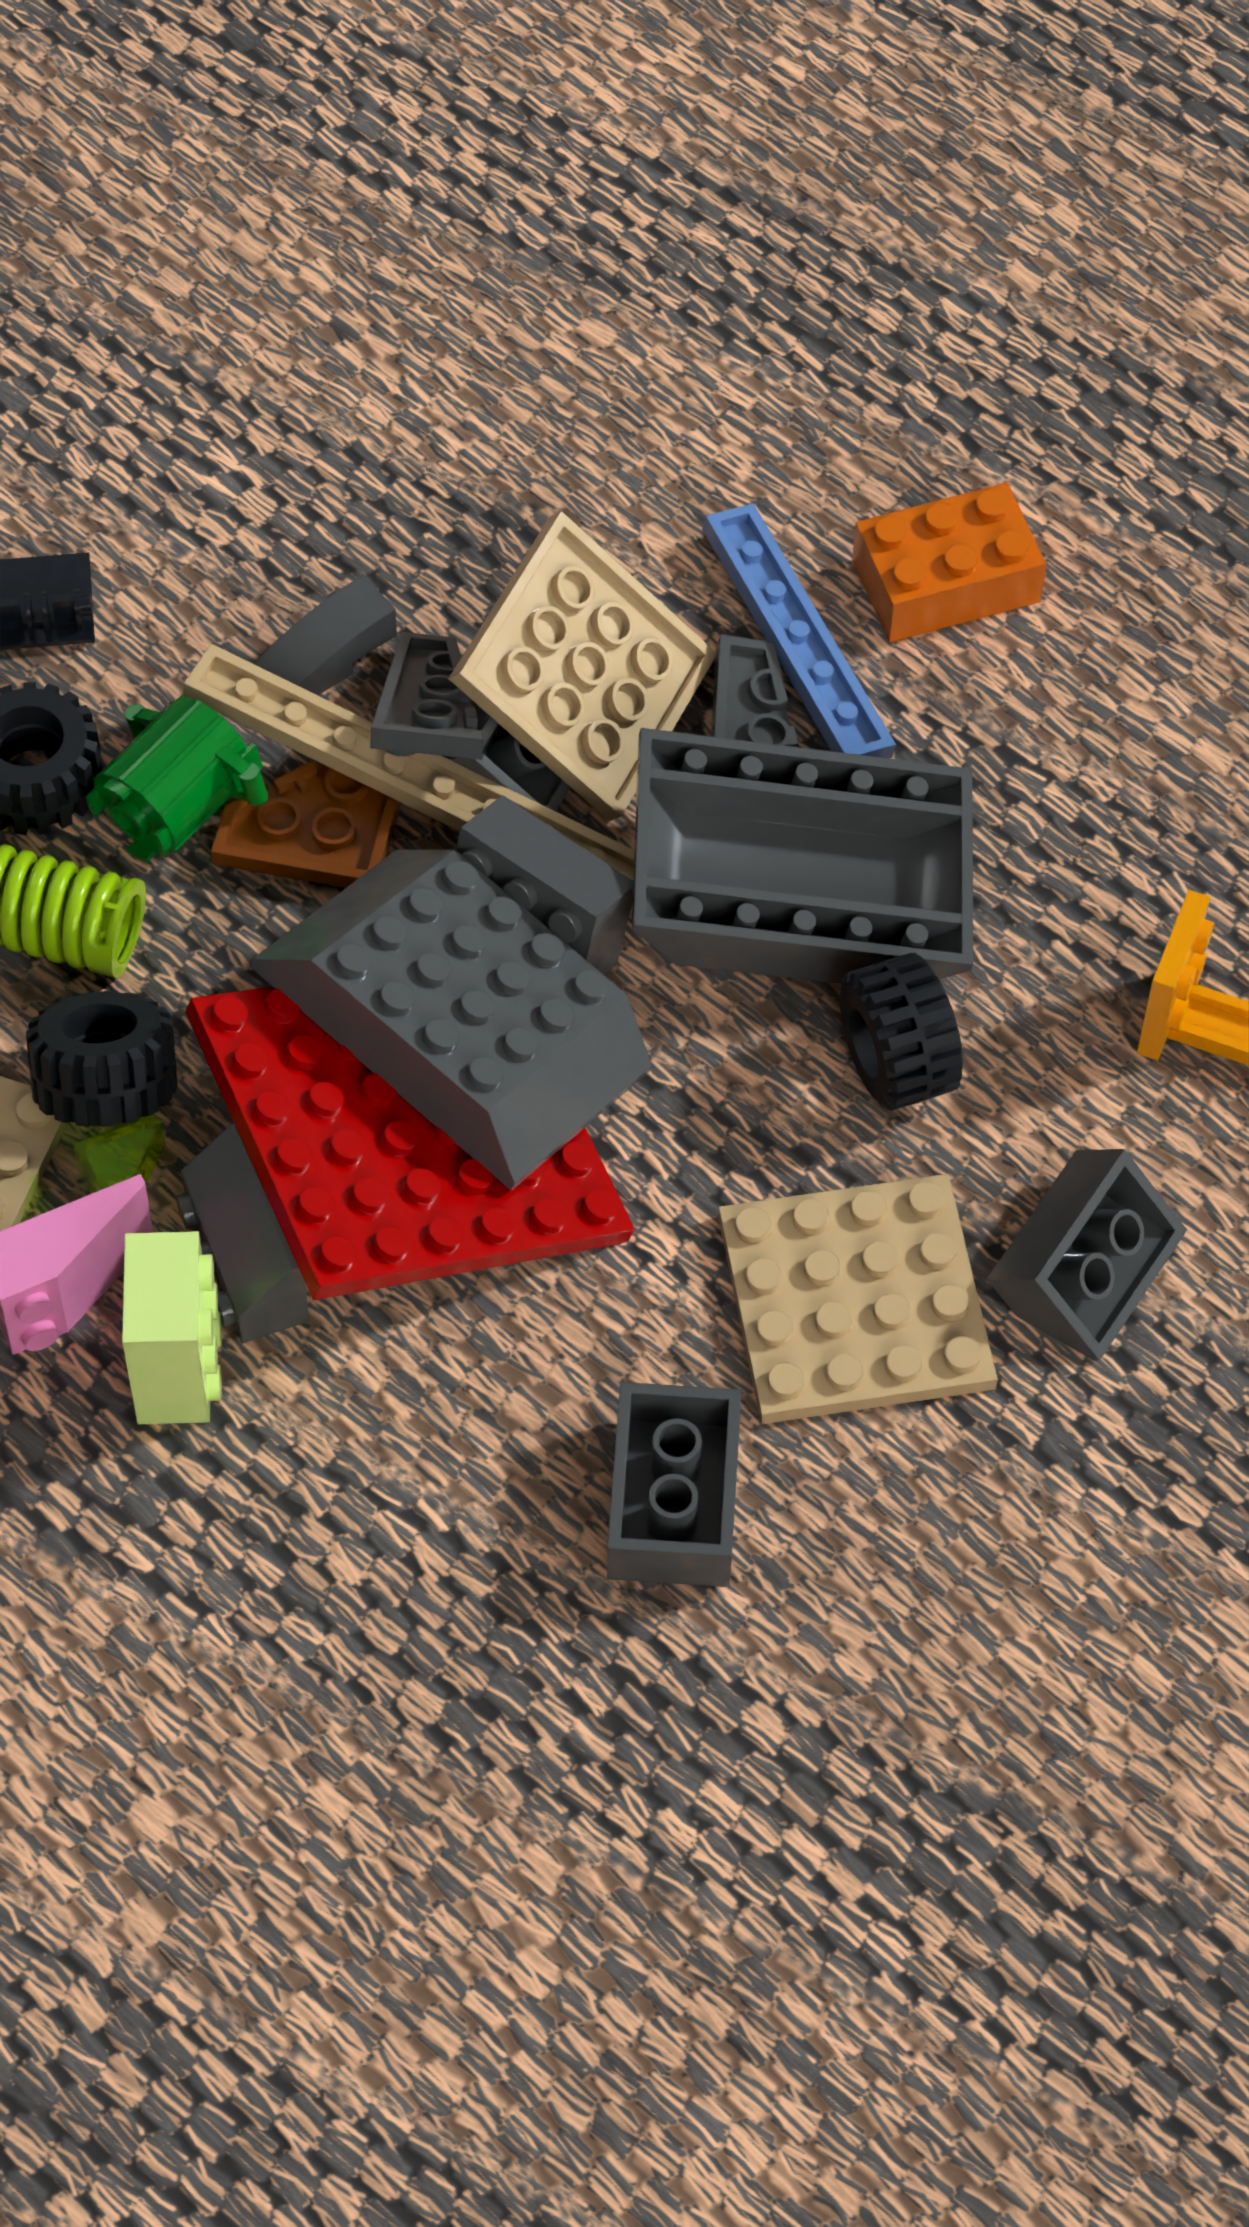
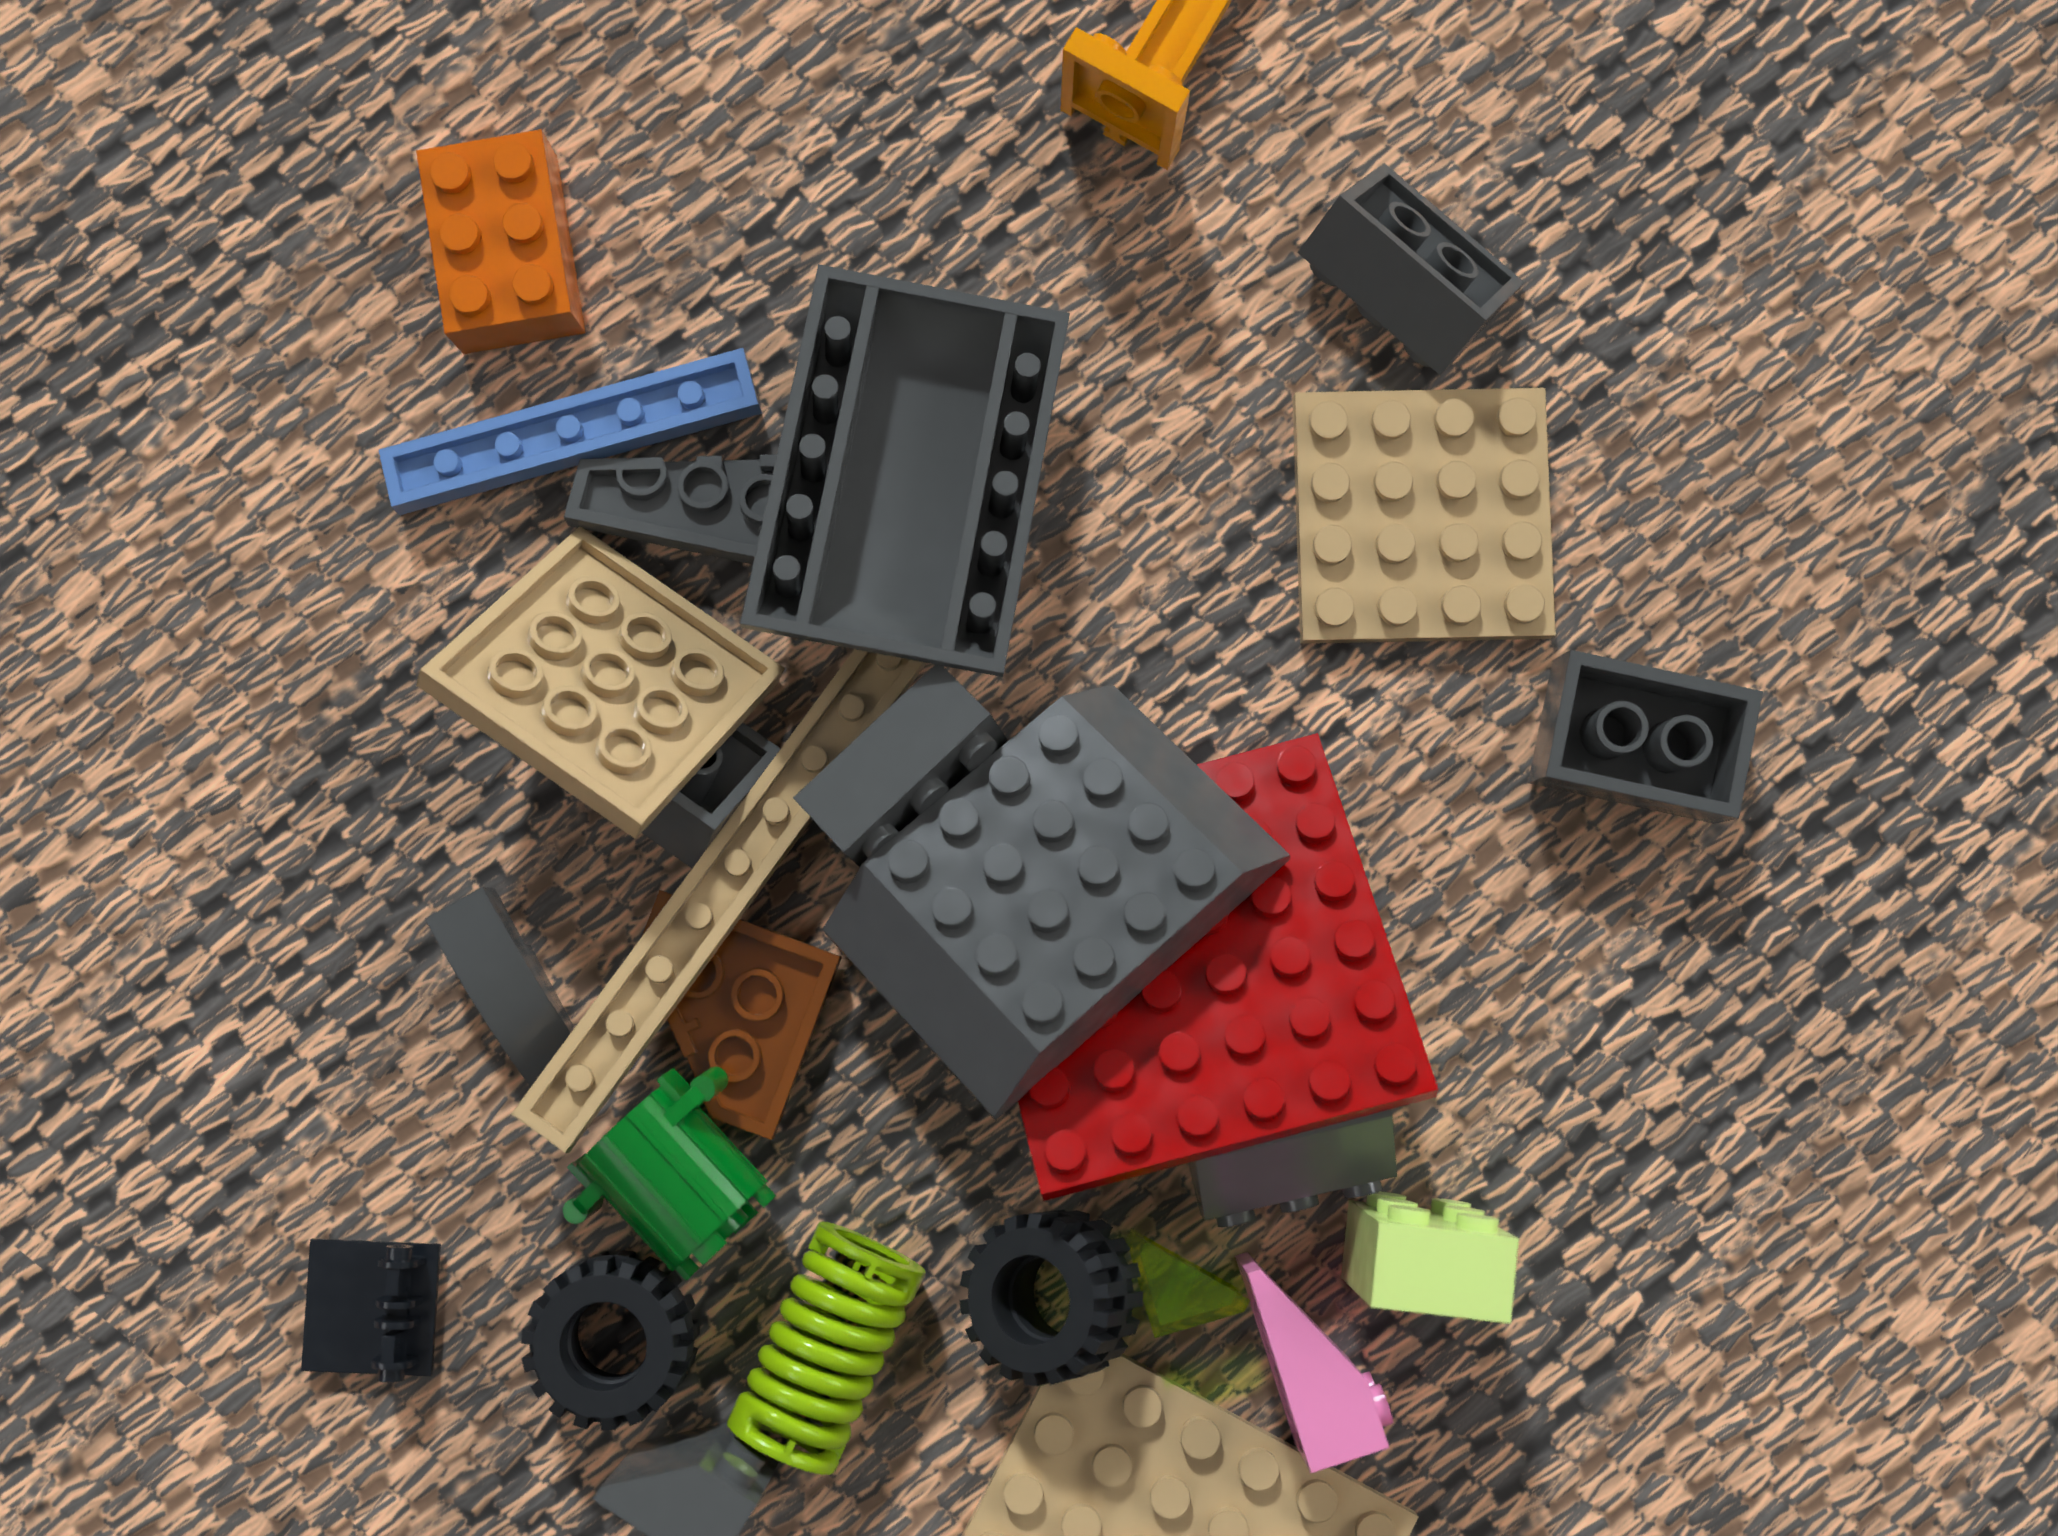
camera: 80 degrees left, 25 degrees up
(422, 706) = (657, 881): dark grey wing -> none
(901, 1031) = (1146, 404): black tyre -> none

